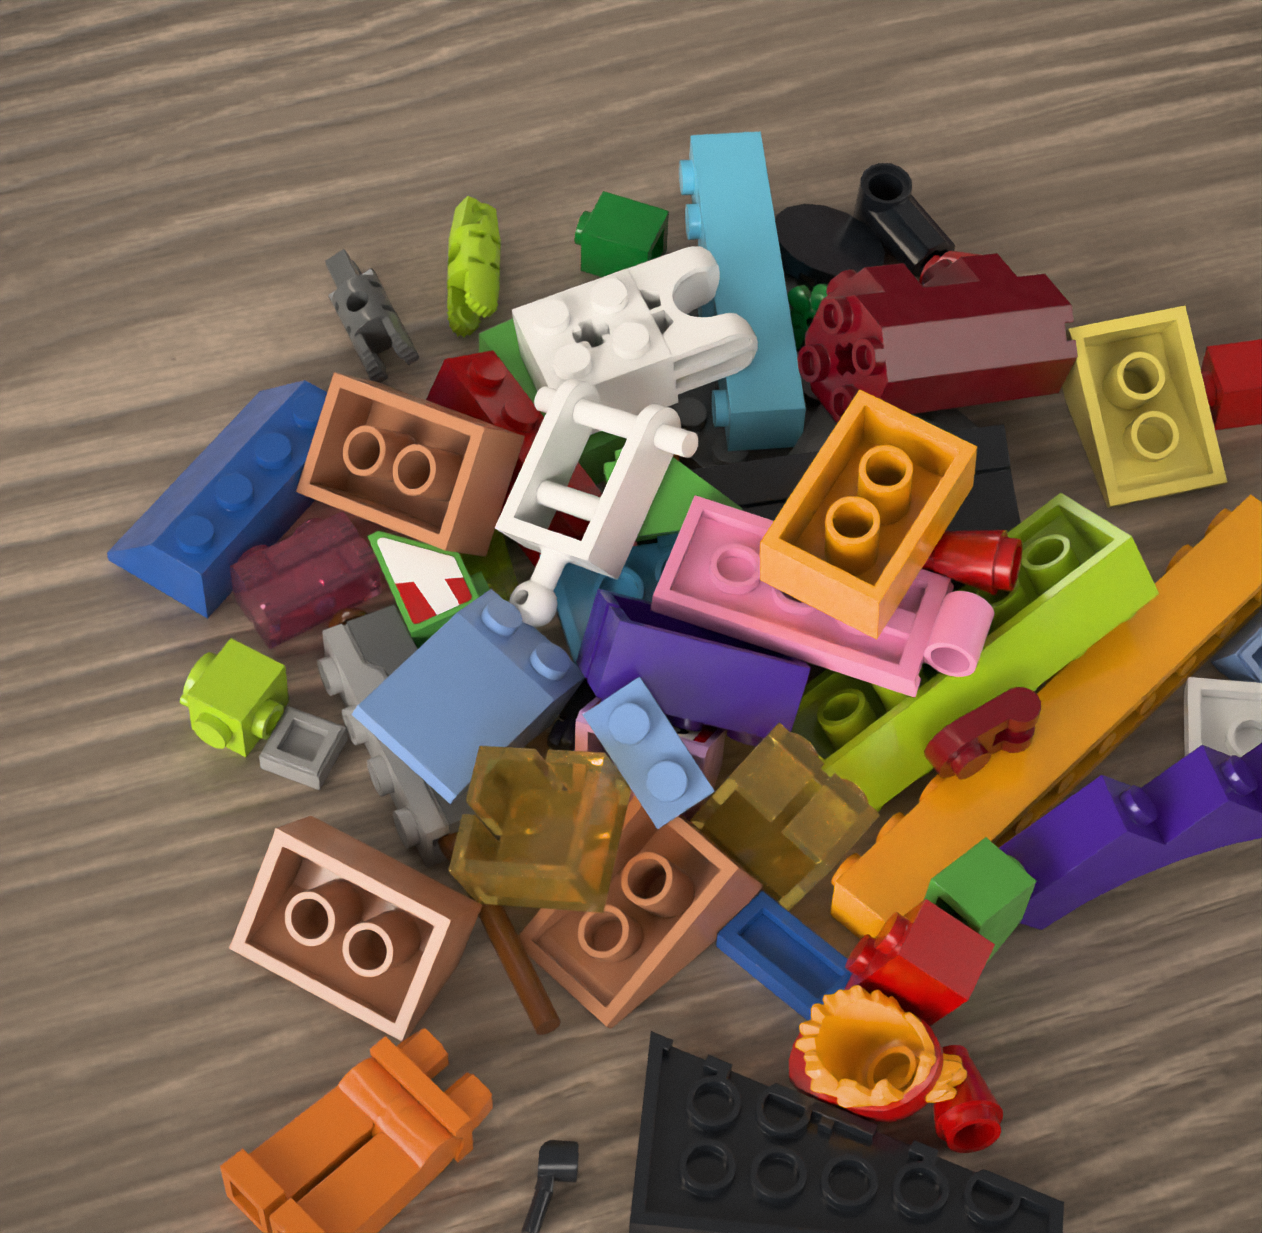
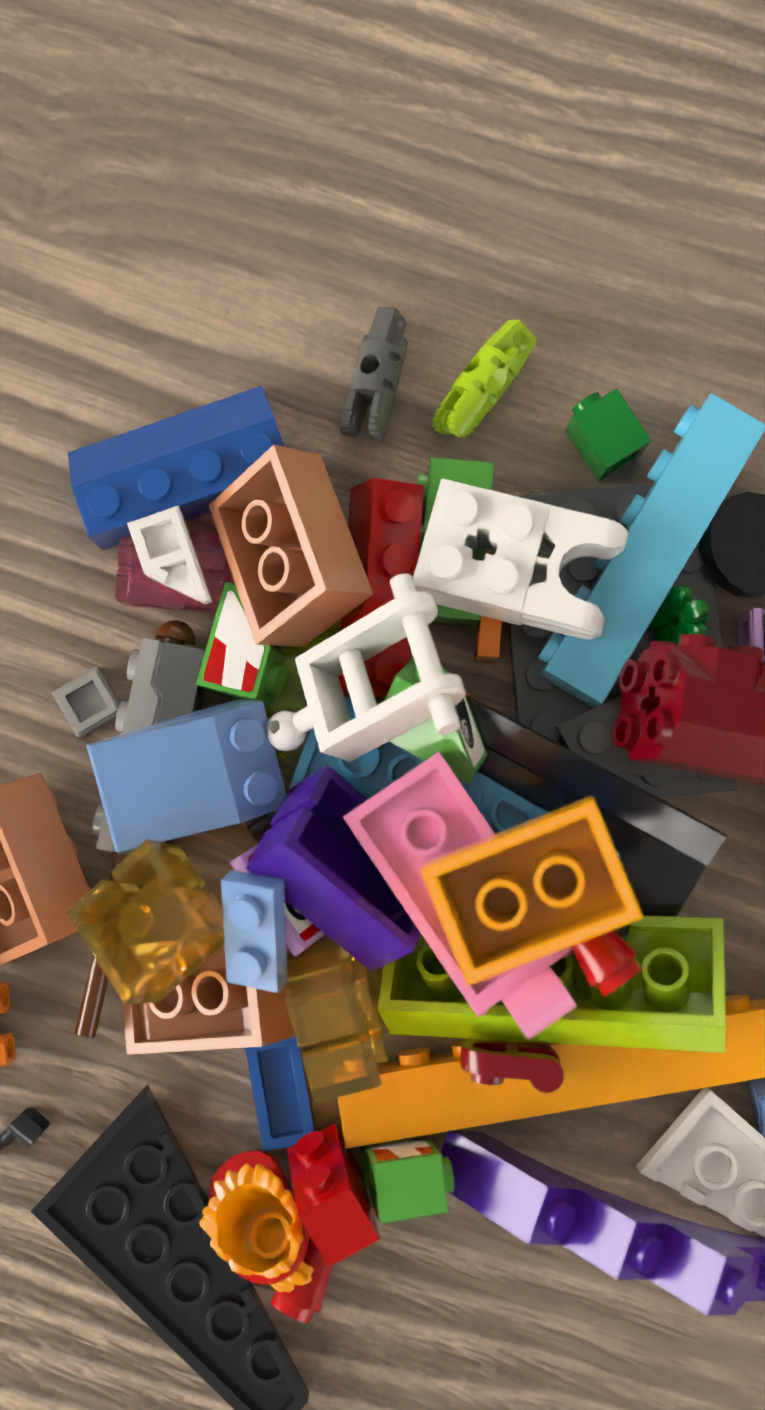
camera: 40 degrees right, 30 degrees up
(235, 697) = (61, 639): lime brick -> none
(296, 542) = (169, 553): none -> white tile

